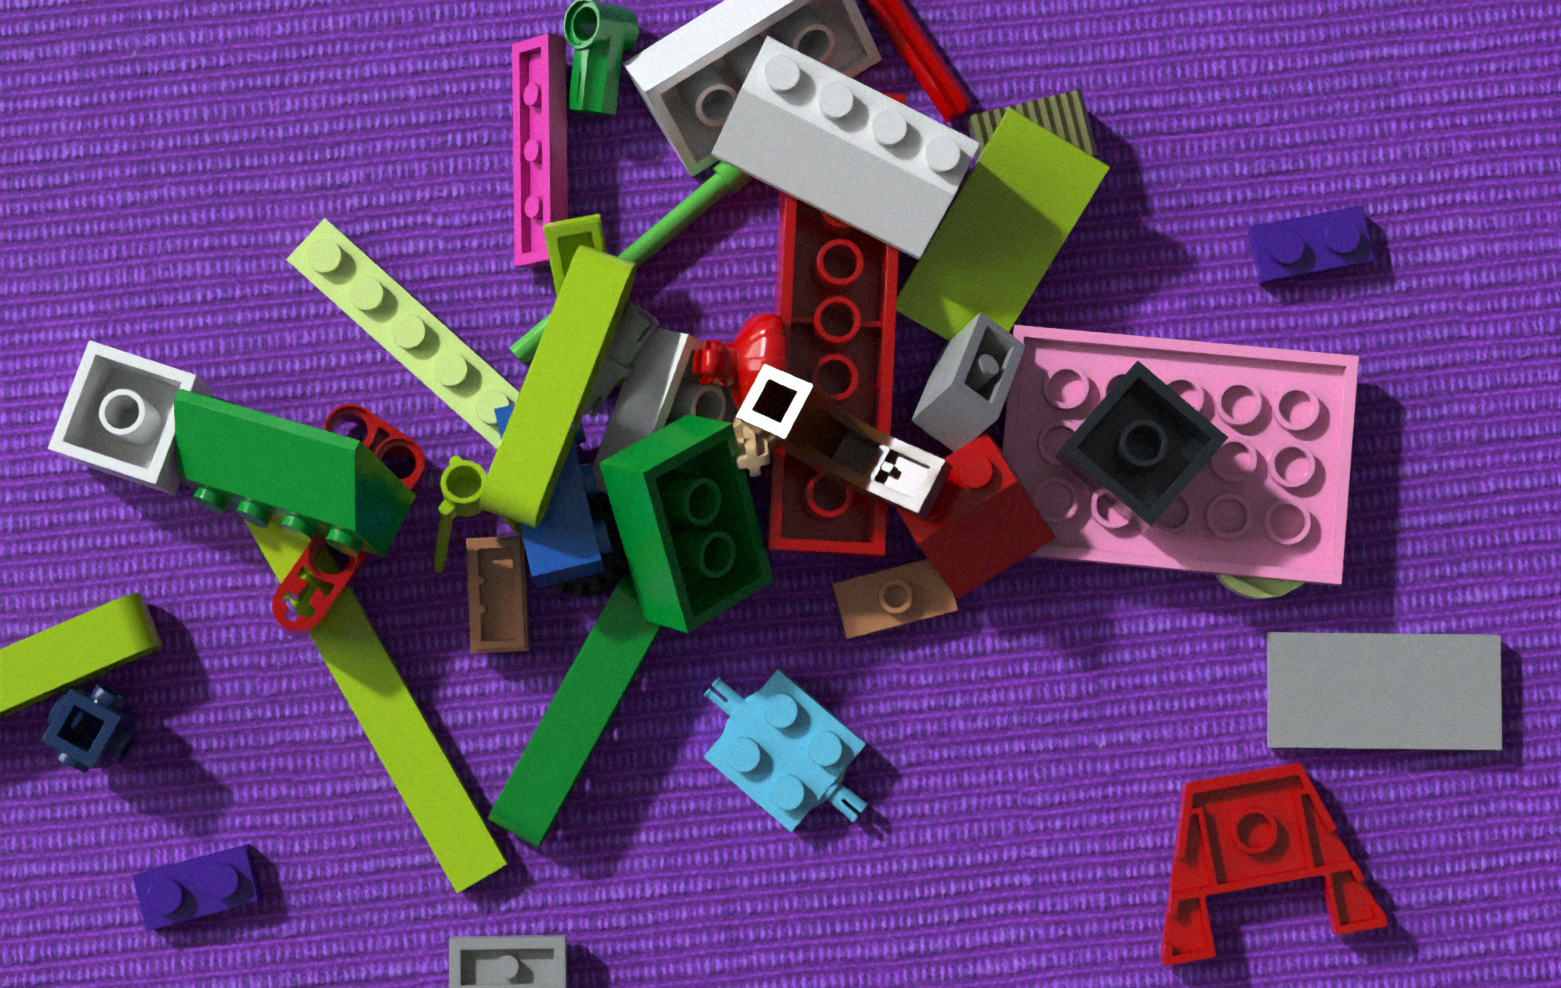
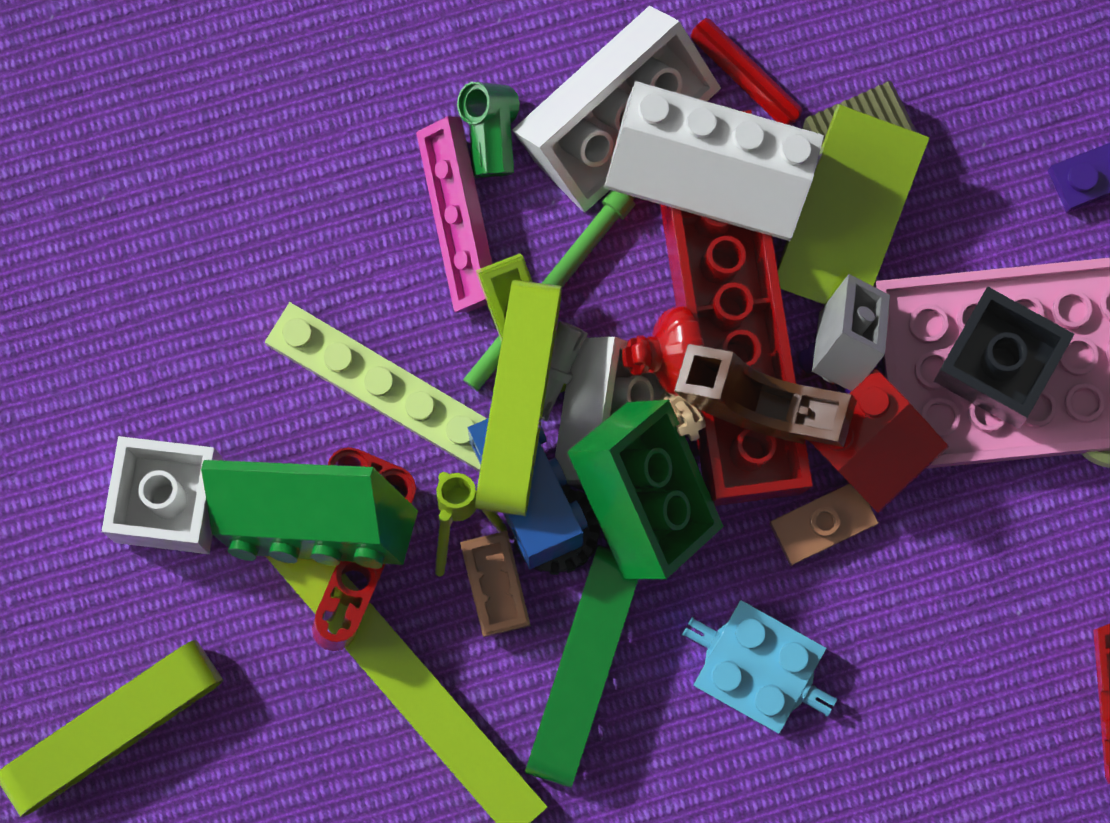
camera: 15 degrees left, 5 degrees down
(72, 732) = (160, 754): dark blue brick -> none

